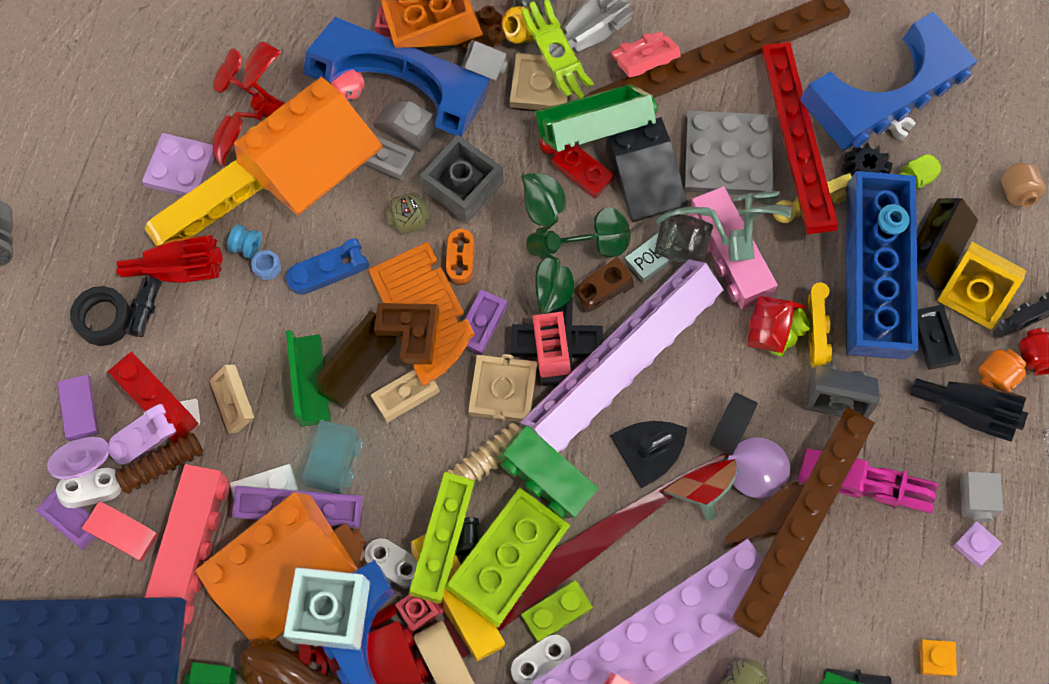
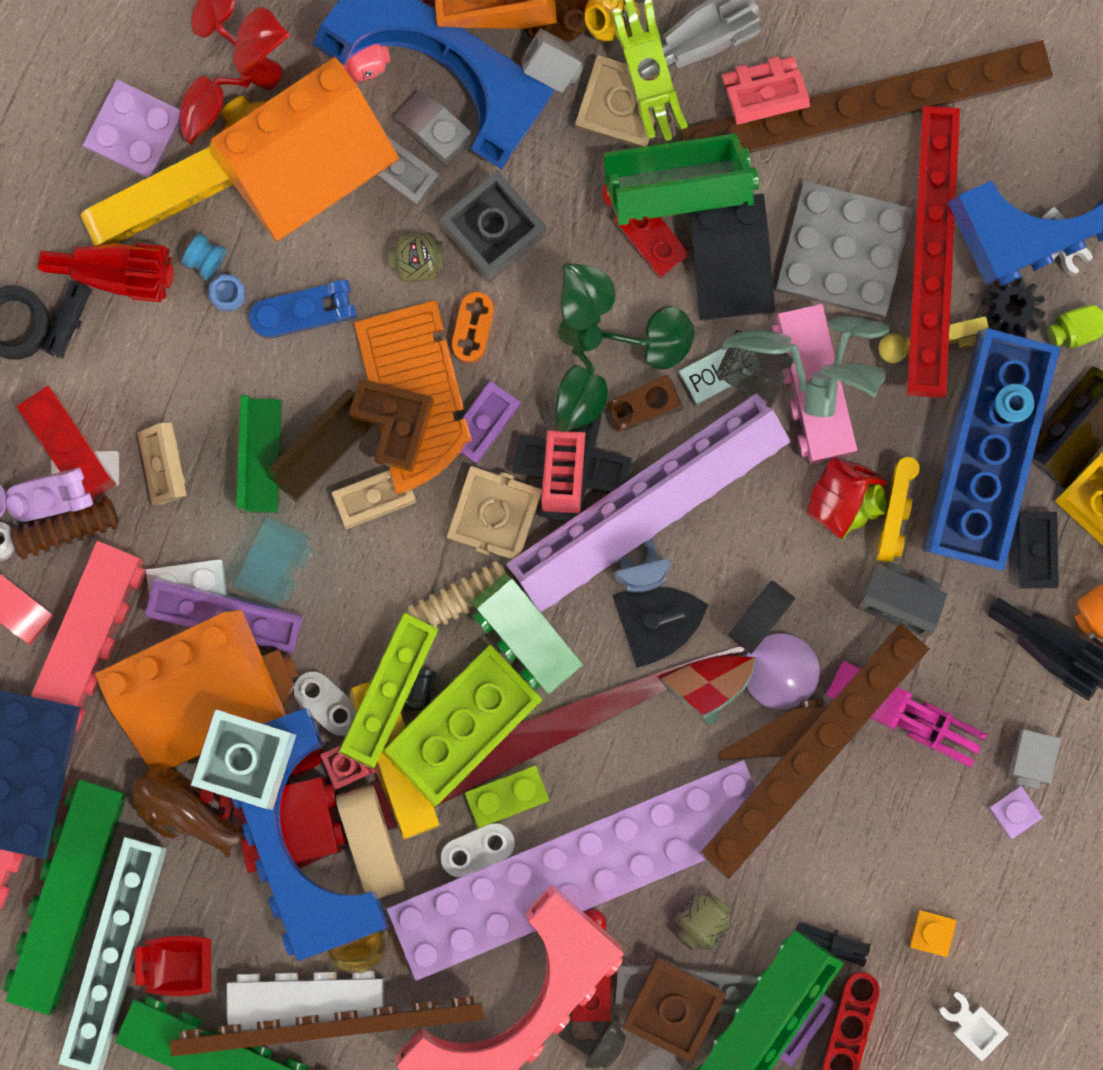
camera: 10 degrees right, 15 degrees up
(631, 409) = (645, 576): none -> sand blue piece

